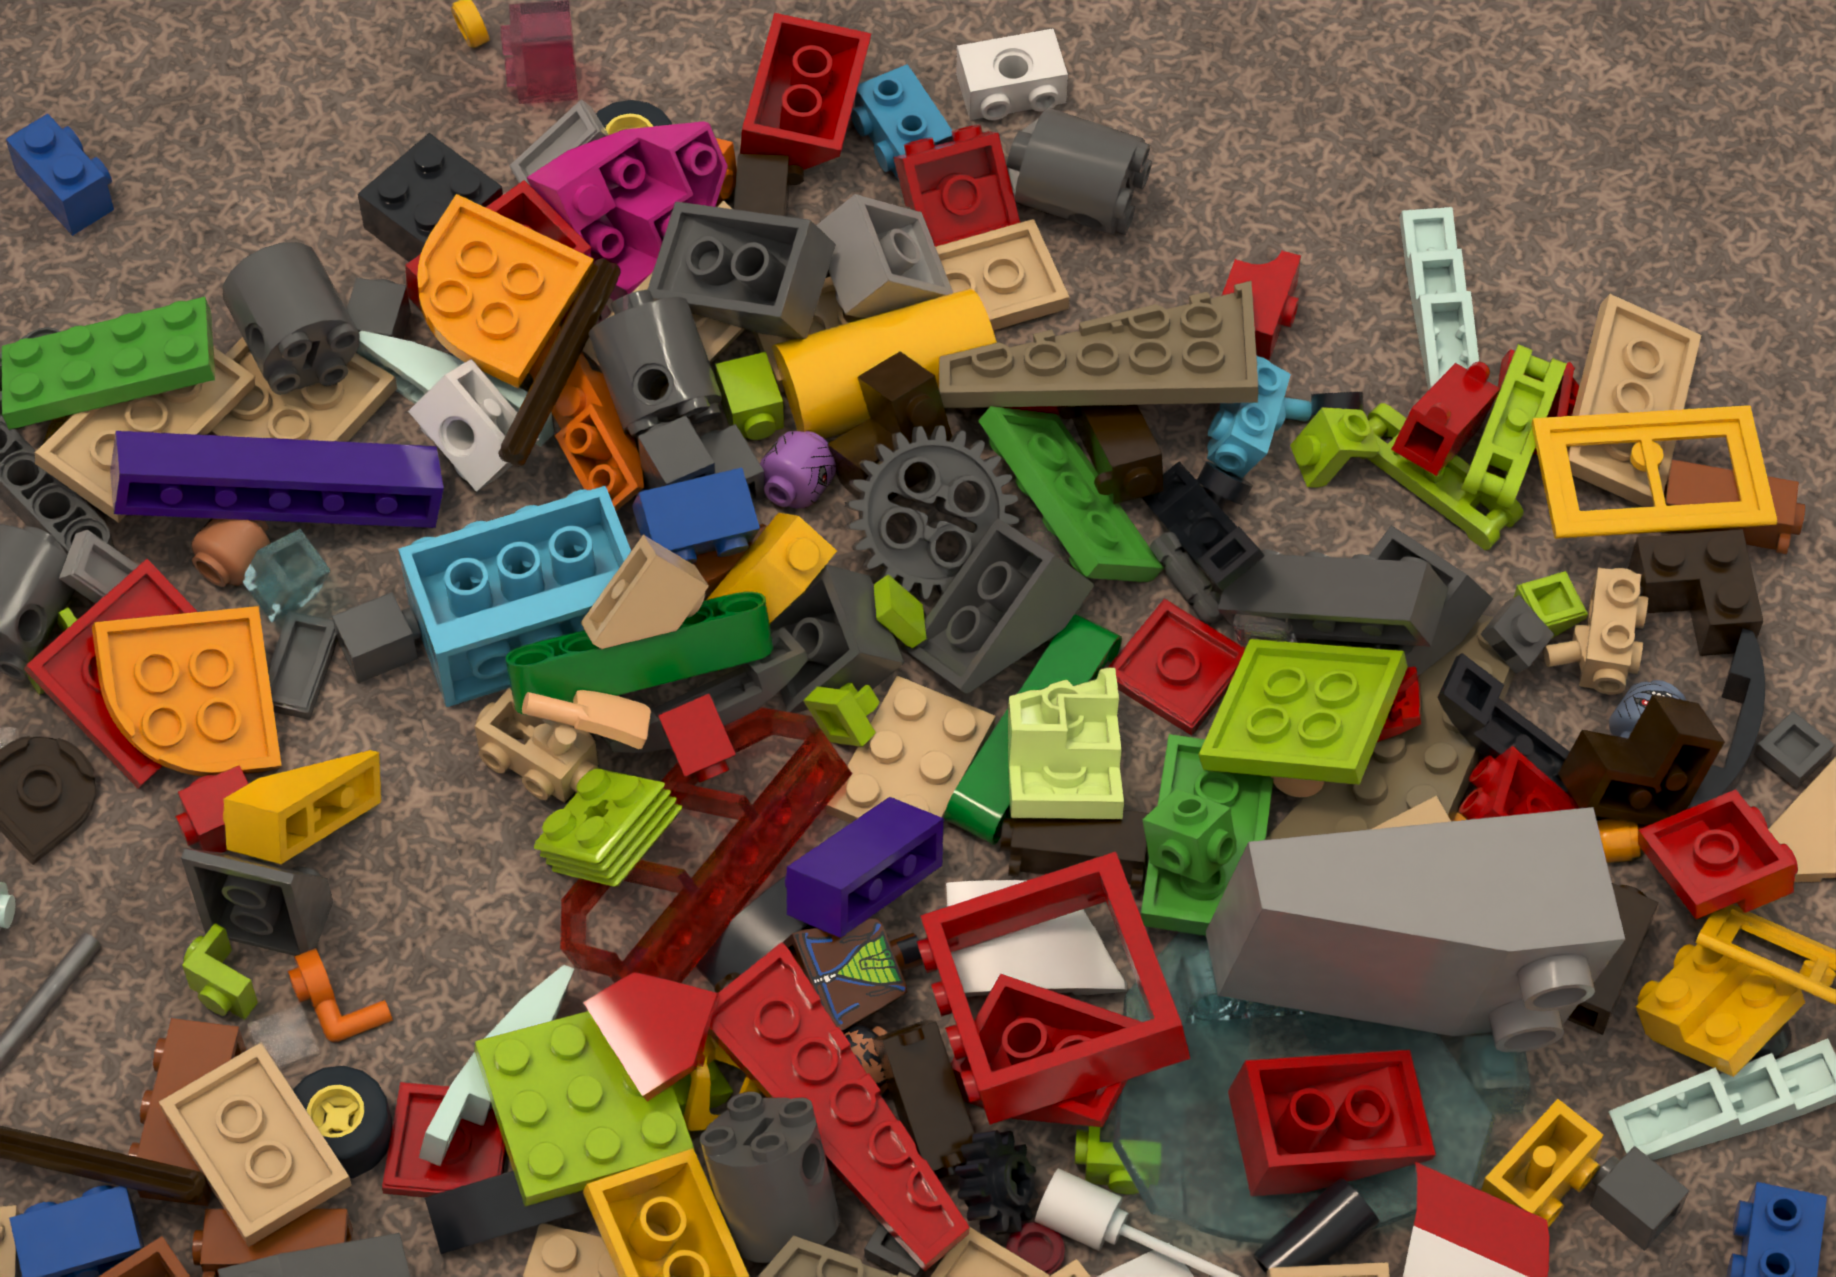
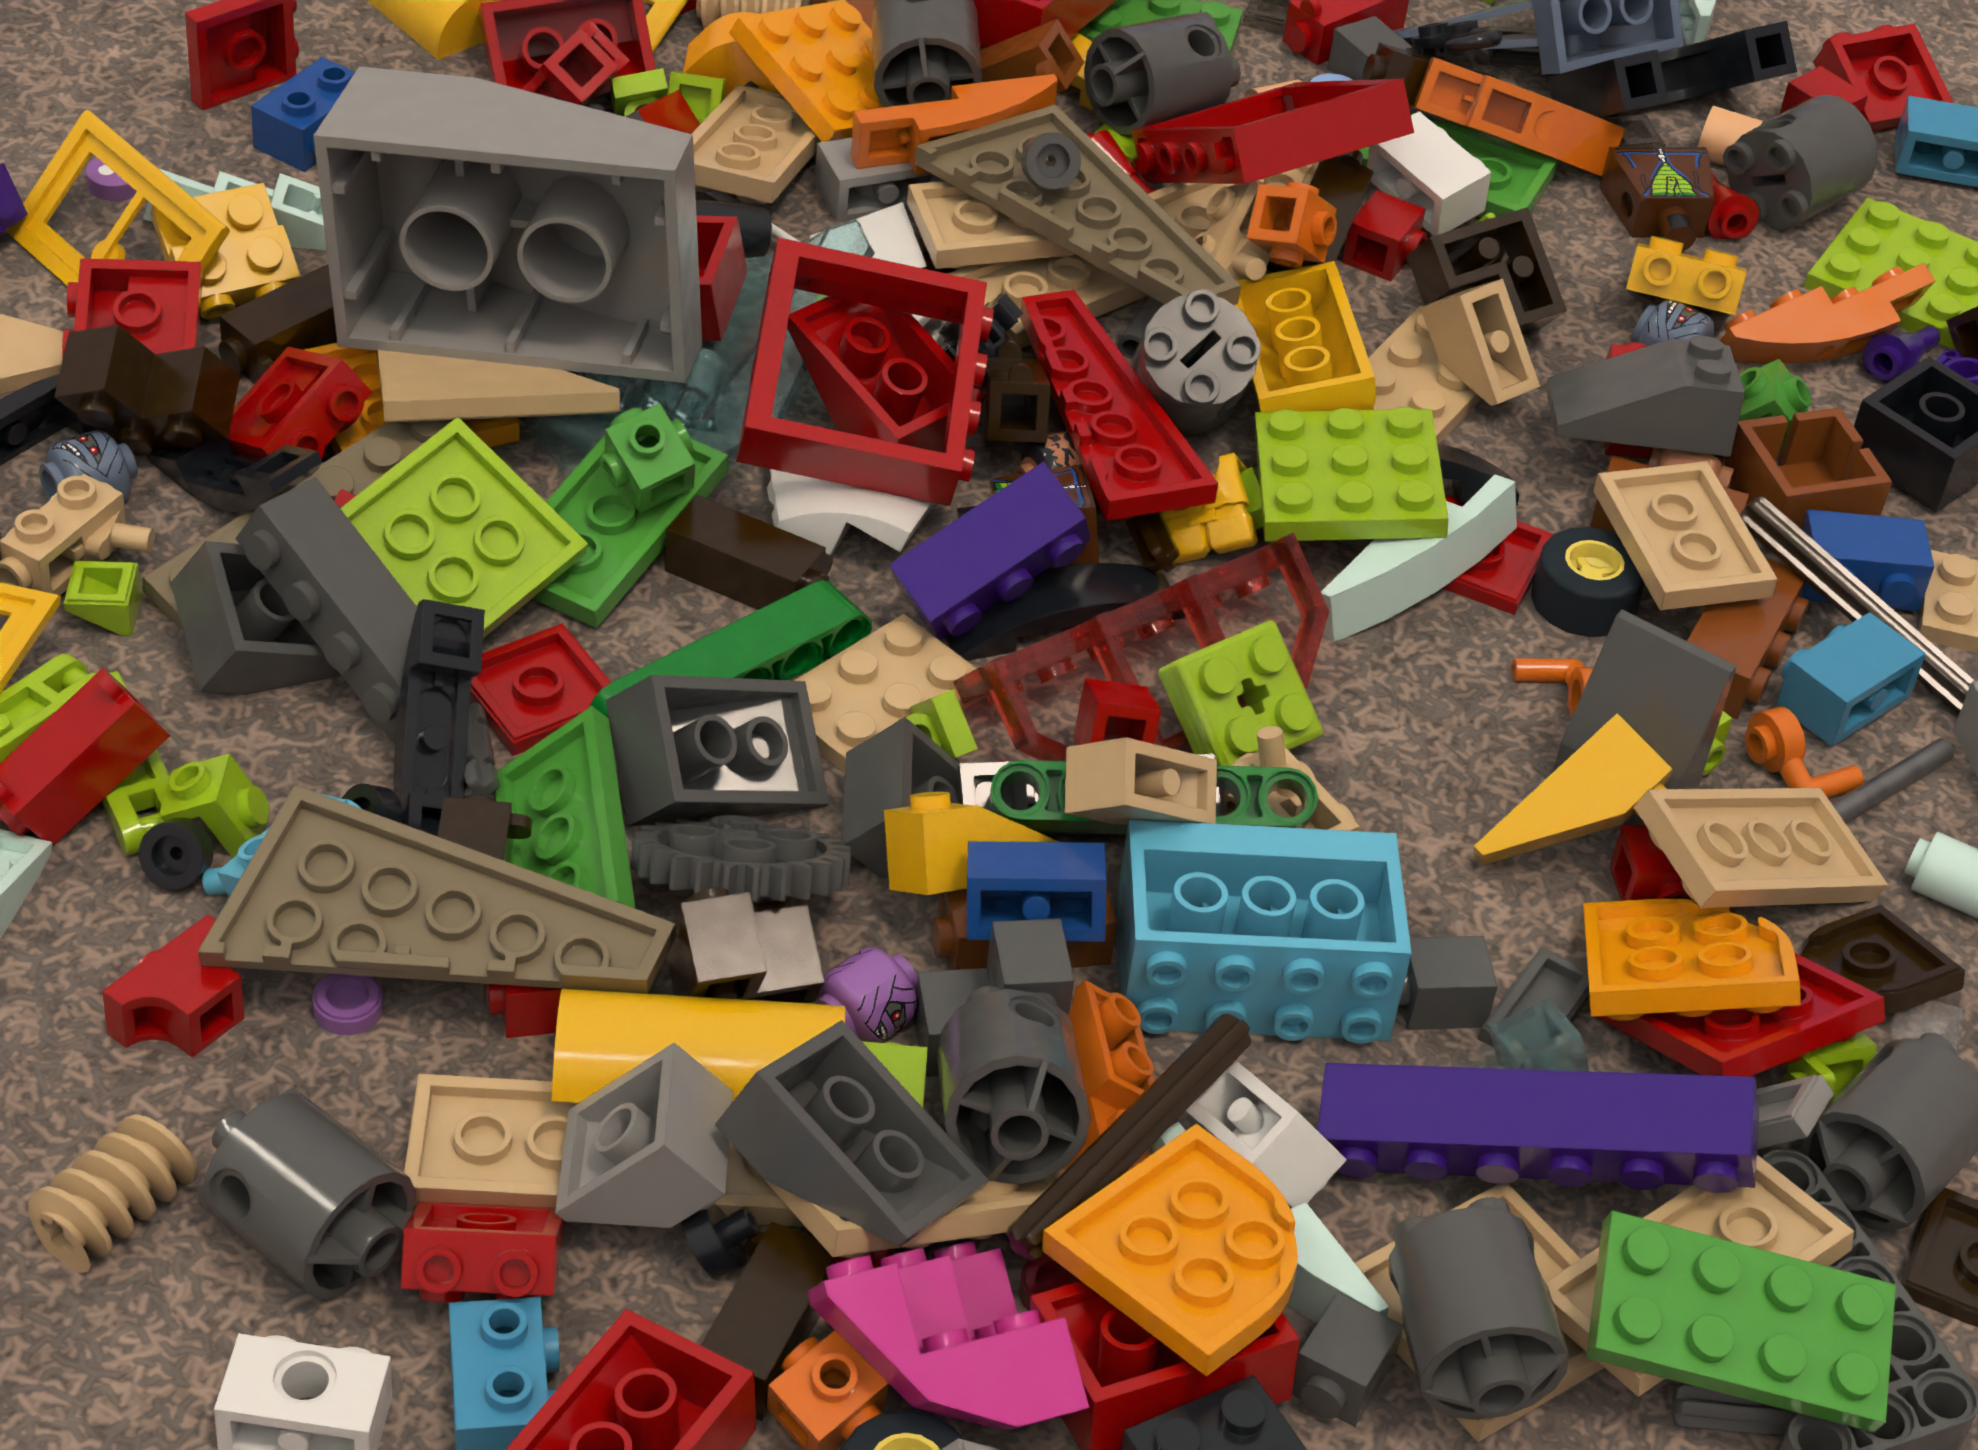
camera: 165 degrees left, 15 degrees down
(80, 1080) = (1850, 678): none -> dark azure brick
(139, 826) = (1759, 846): none -> tan plate
(140, 992) = (1779, 744): none -> orange plate
(595, 713) = (1234, 739): light nougat piece -> none
(654, 1028) = (1267, 462): red slope -> none
(899, 611) = (827, 798): lime tile -> none
(1066, 751) = (721, 590): yellowish green slope -> none
(1208, 154) = (107, 1188): none -> tan piece
(1517, 634) = (167, 547): dark grey plate -> none

